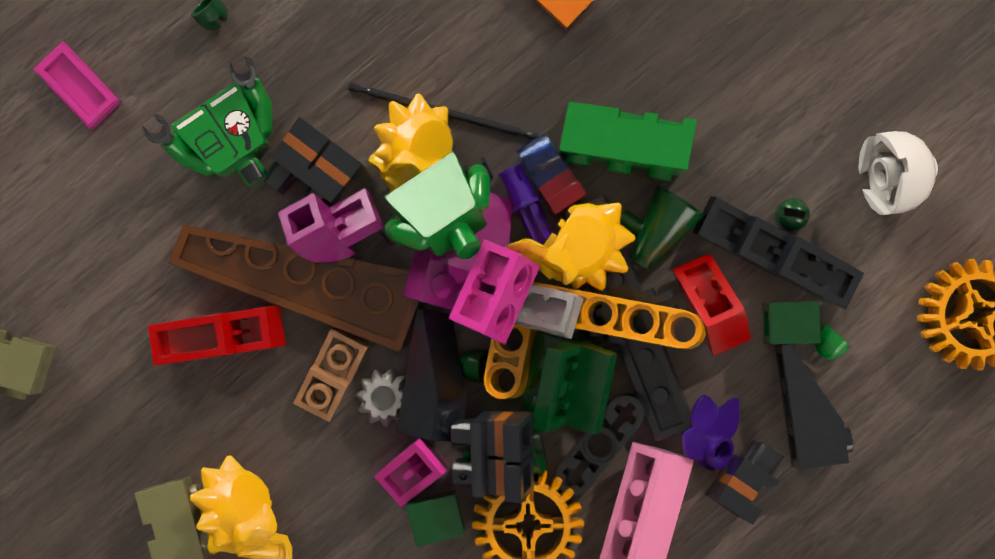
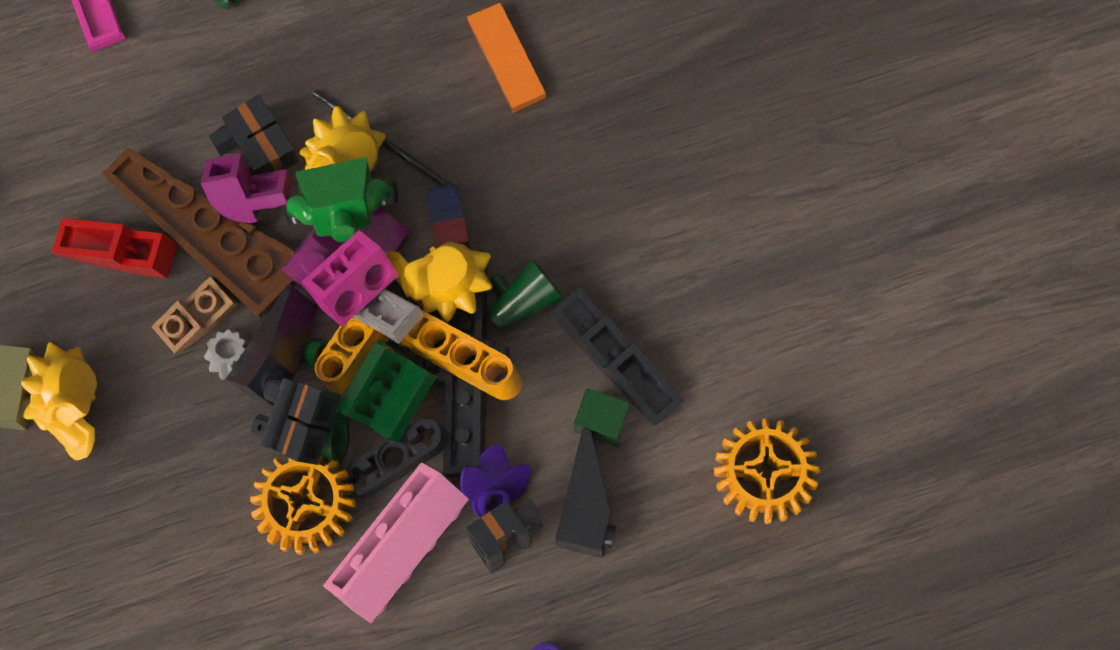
camera: 30 degrees right, 15 degrees down
(223, 131) = (195, 86): green torso -> none
(412, 471) = (224, 418): dark pink slope -> none
(435, 518) = (227, 465): dark green panel -> none
(526, 203) = (418, 232): dark purple axle -> none
(626, 141) = (522, 213): green wedge -> none
(714, 302) = (539, 377): red arch -> none
(792, 223) = (639, 336): dark green hinge -> none
(831, 345) = (630, 450): green hinge -> none
(898, 171) = (746, 322): white cylinder -> none

